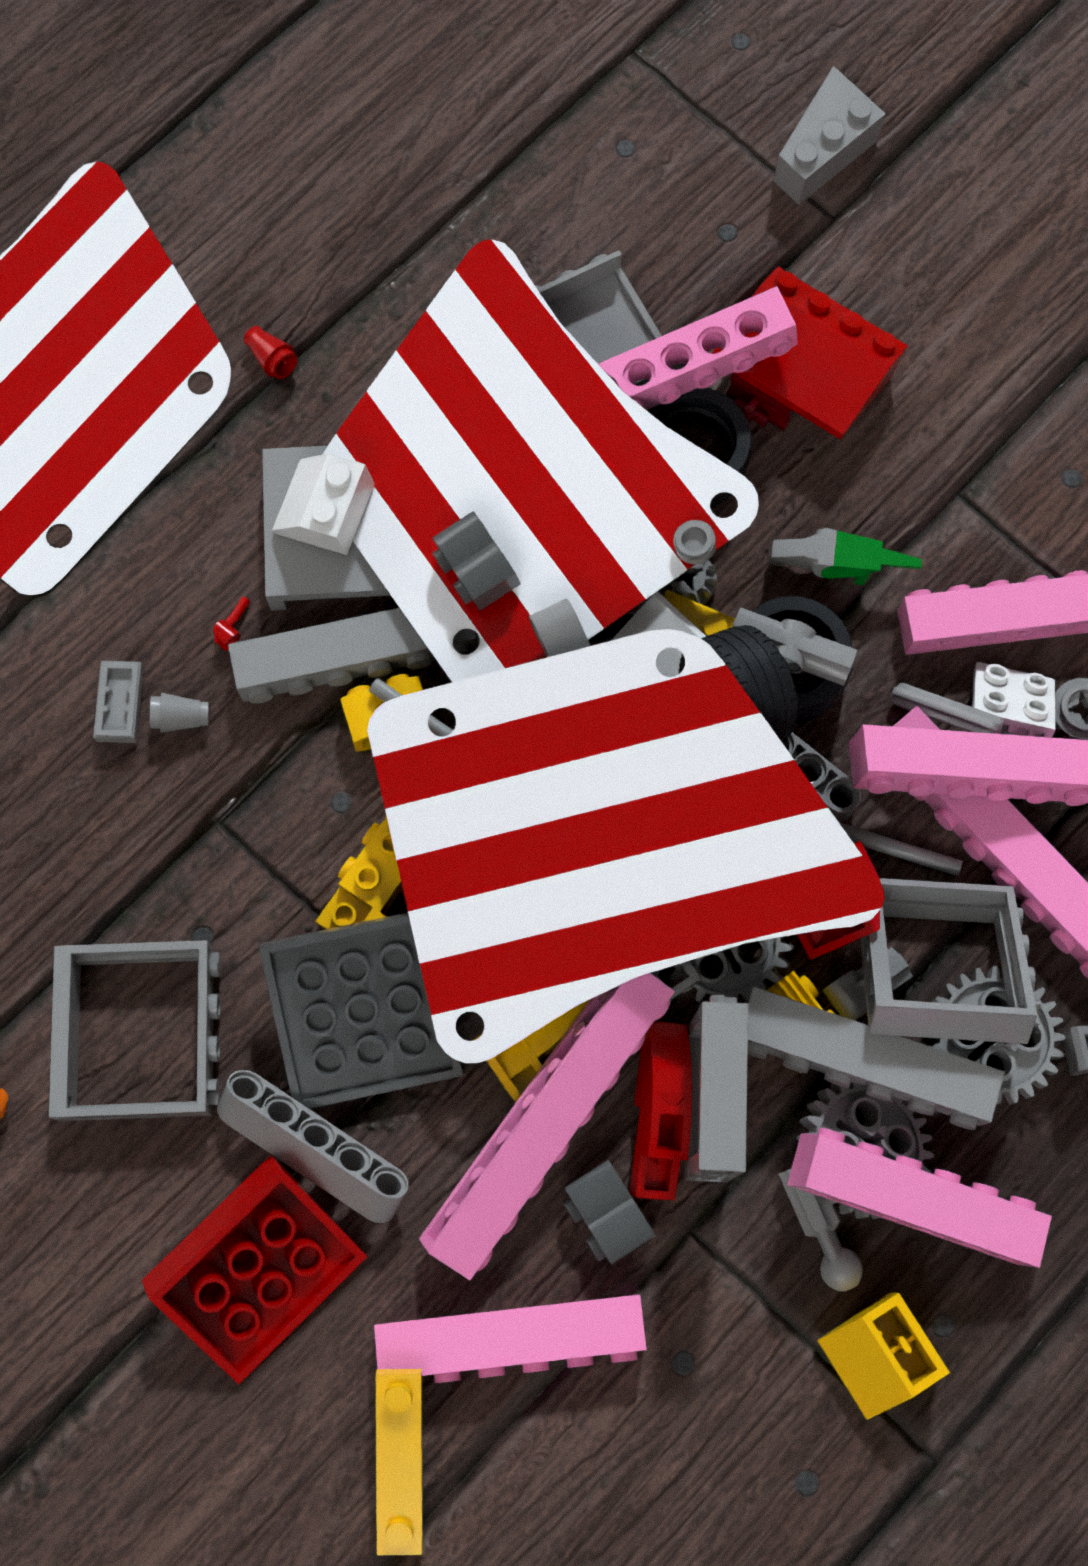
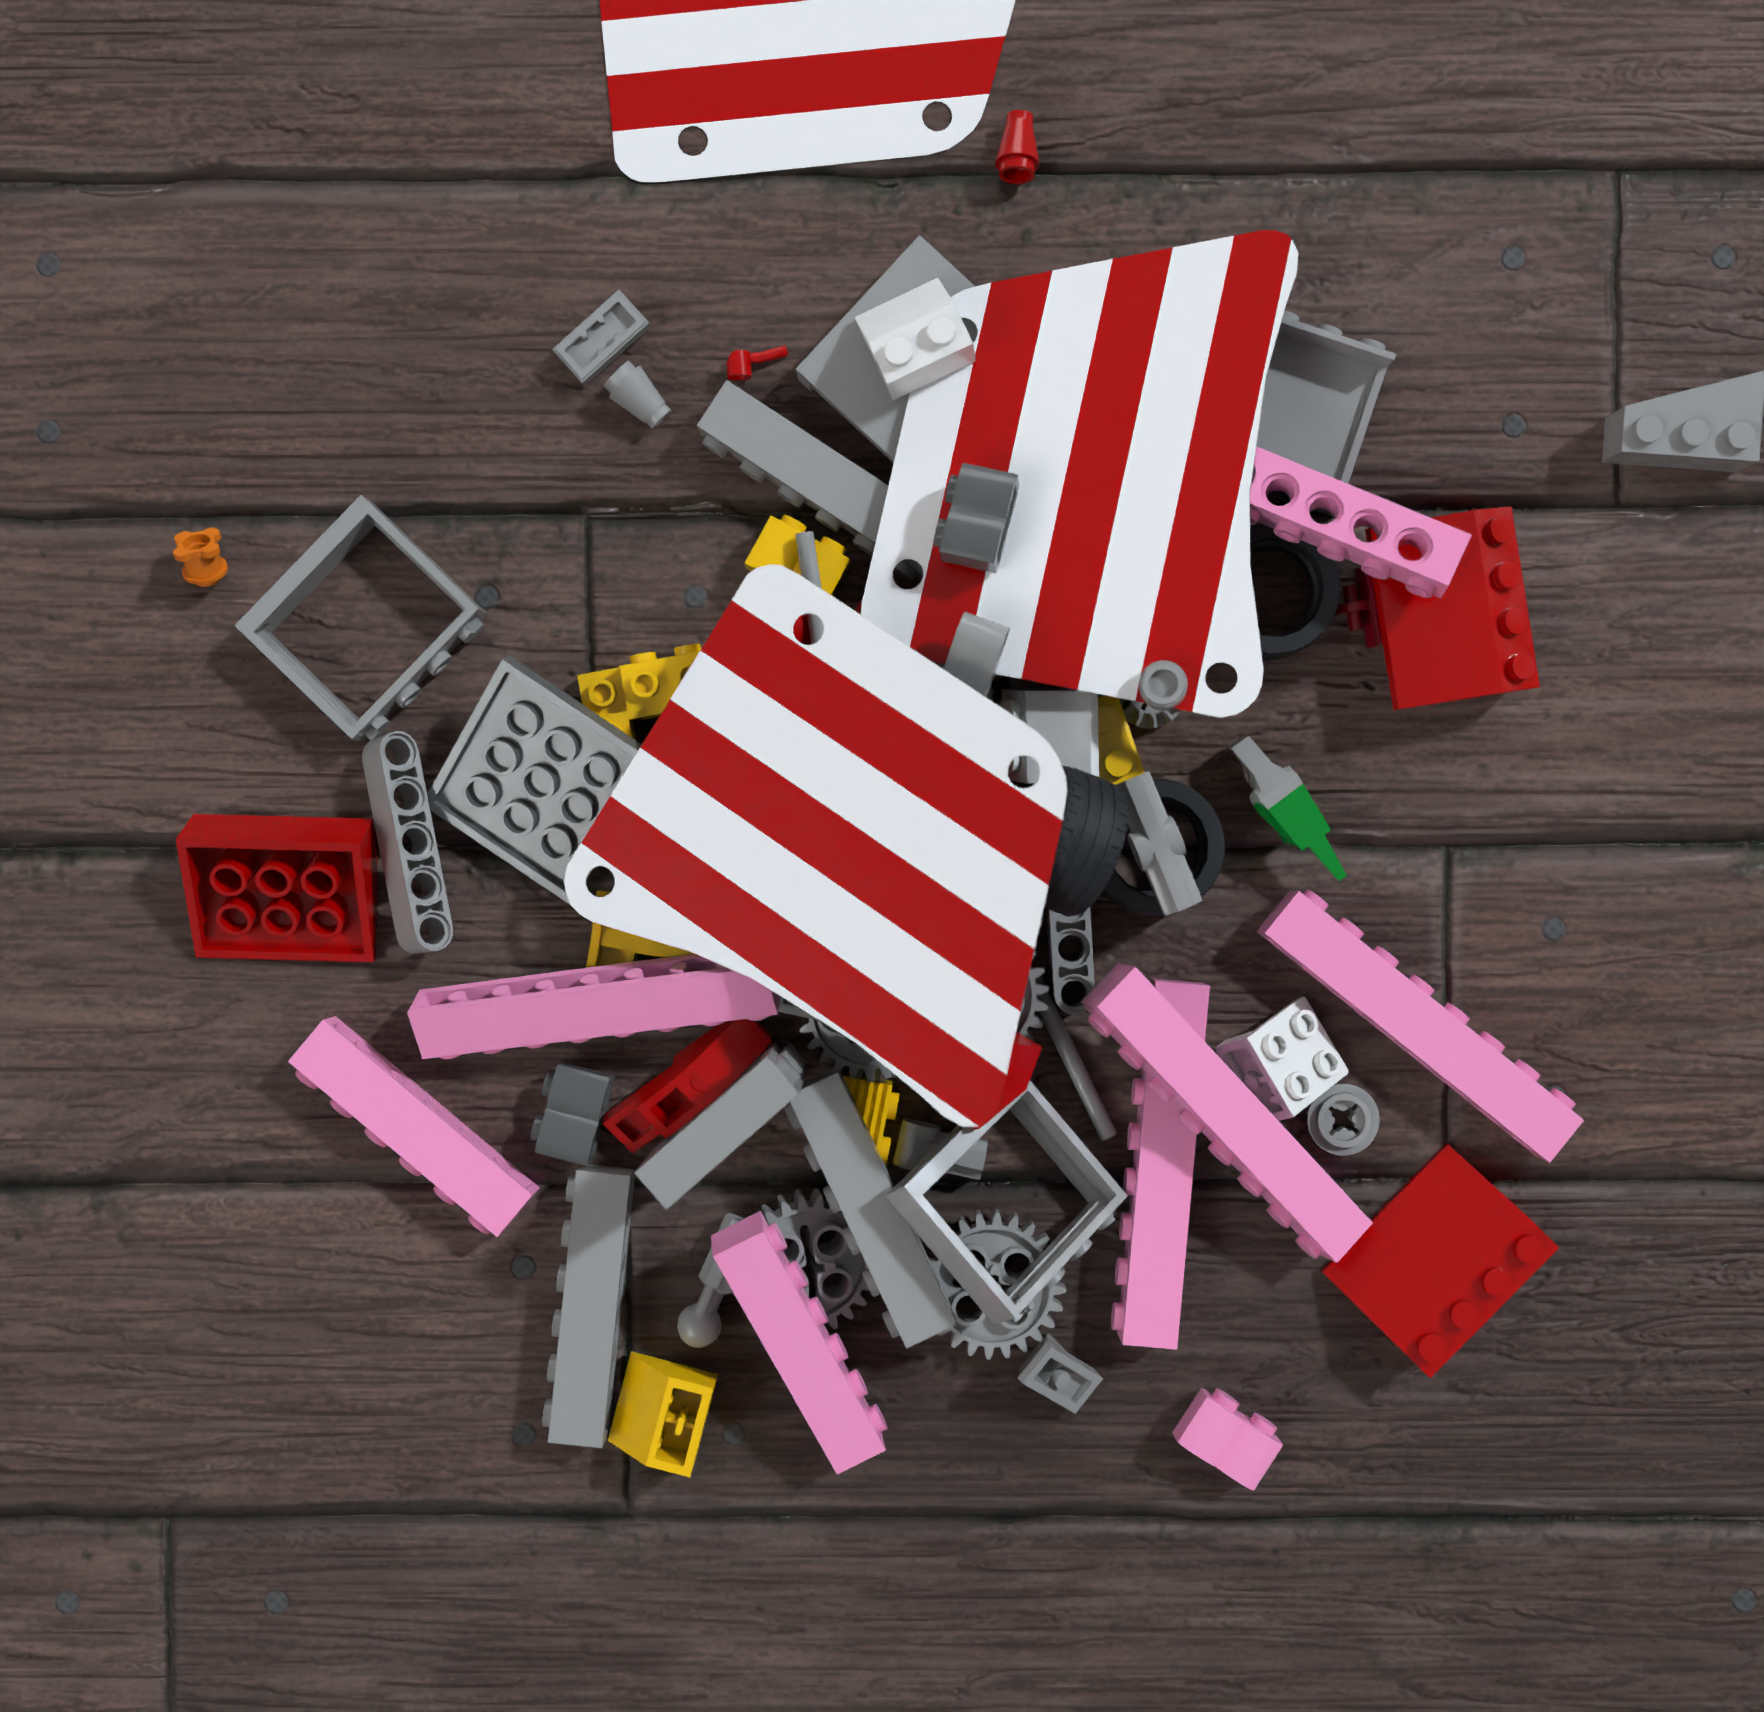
camera: 45 degrees right, 15 degrees up
(399, 1462) = (250, 1128): yellow plate -> none
(759, 1336) = (590, 1305): none -> light grey brick
(946, 710) = (1229, 1014): light grey axle -> none

